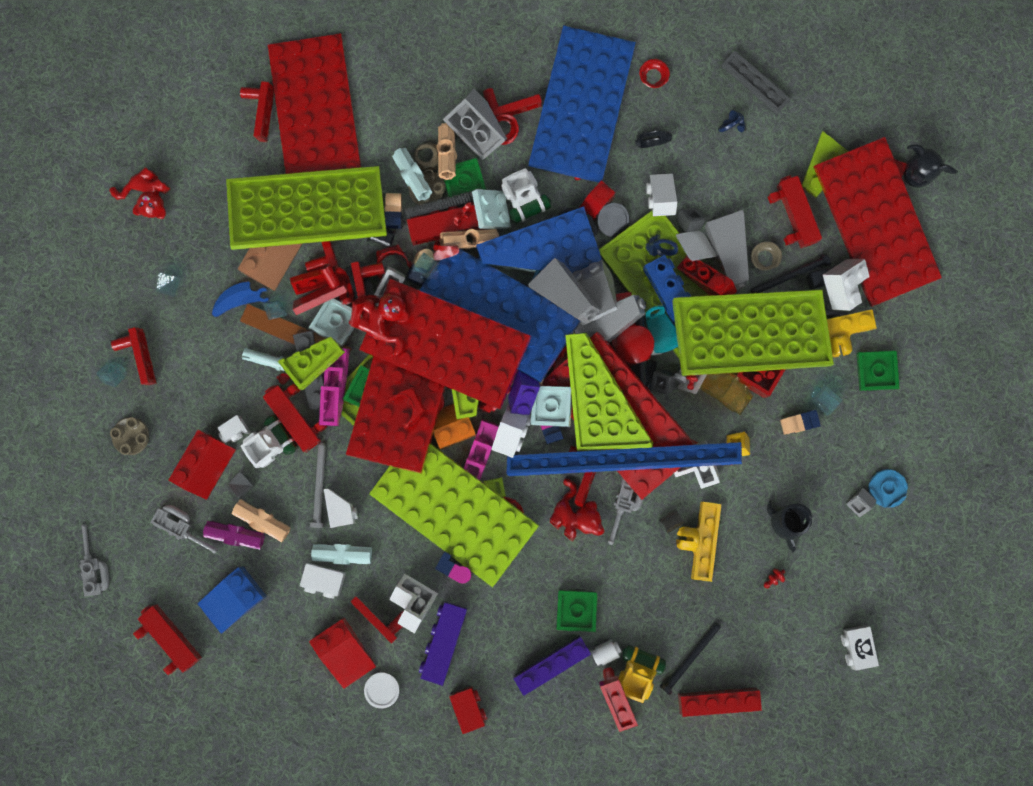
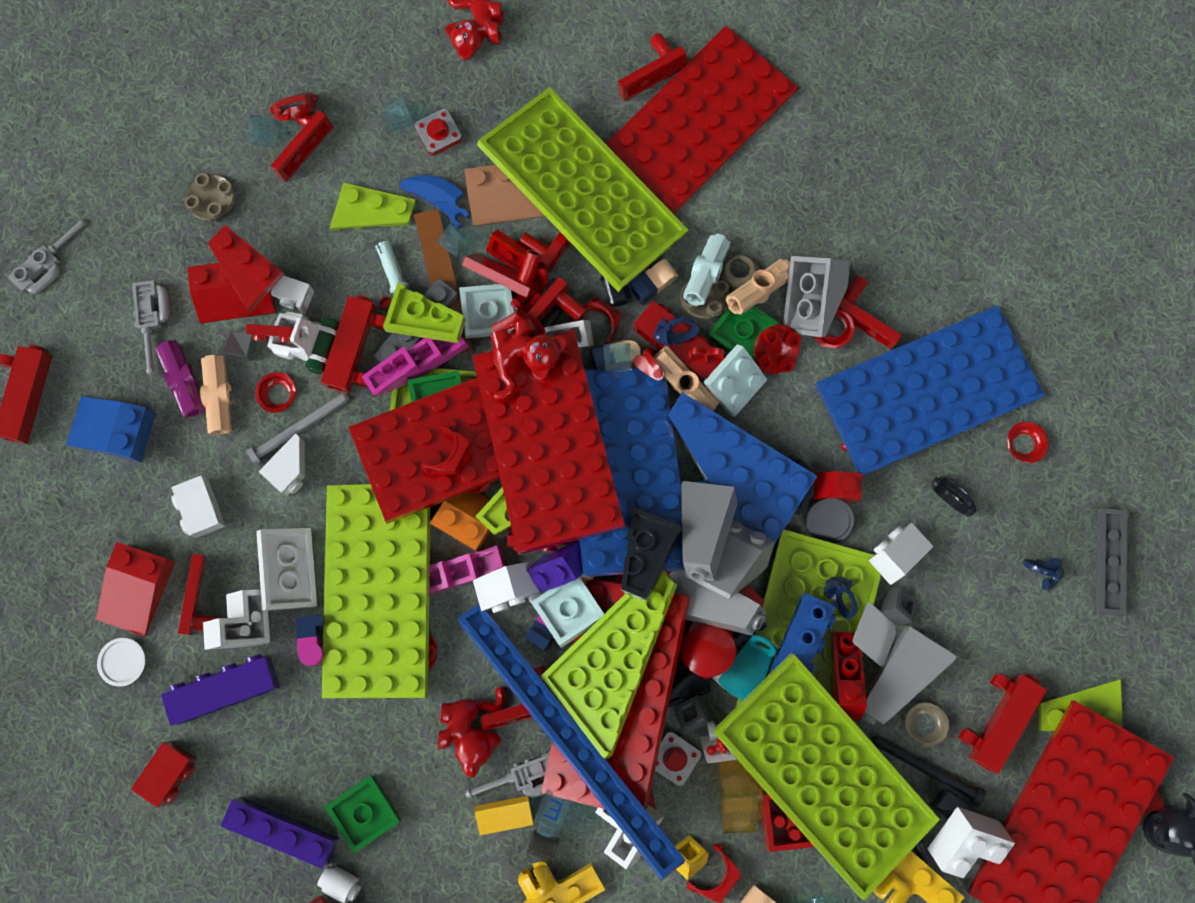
camera: 50 degrees right, 5 degrees down
(105, 354) = (309, 103): none -> red helmet
(197, 444) = (245, 267): none -> red wing
(198, 267) = (438, 132): none -> piece
(214, 344) = (367, 207): none -> lime wing
(246, 463) = (262, 332): none -> red plate
(276, 484) = (265, 385): none -> red piece
(341, 554) = (239, 504): light aqua piece -> none
(401, 553) = (286, 569): none -> white plate
(435, 228) = (667, 337): none -> dark blue piece
(439, 204) = (718, 342): dark grey piece -> none
(490, 170) = (777, 349): none -> red dish
(496, 485) = (437, 617): lime tile -> none
(524, 195) = (777, 408): white piece -> none
(555, 334) = (648, 551): none -> black wing
(638, 531) = (503, 815): none -> yellow tile
(658, 503) = (551, 814): none -> clear light blue brick
(681, 409) = (676, 759): none -> flat silver piece
(770, 439) = (722, 890): none -> red helmet

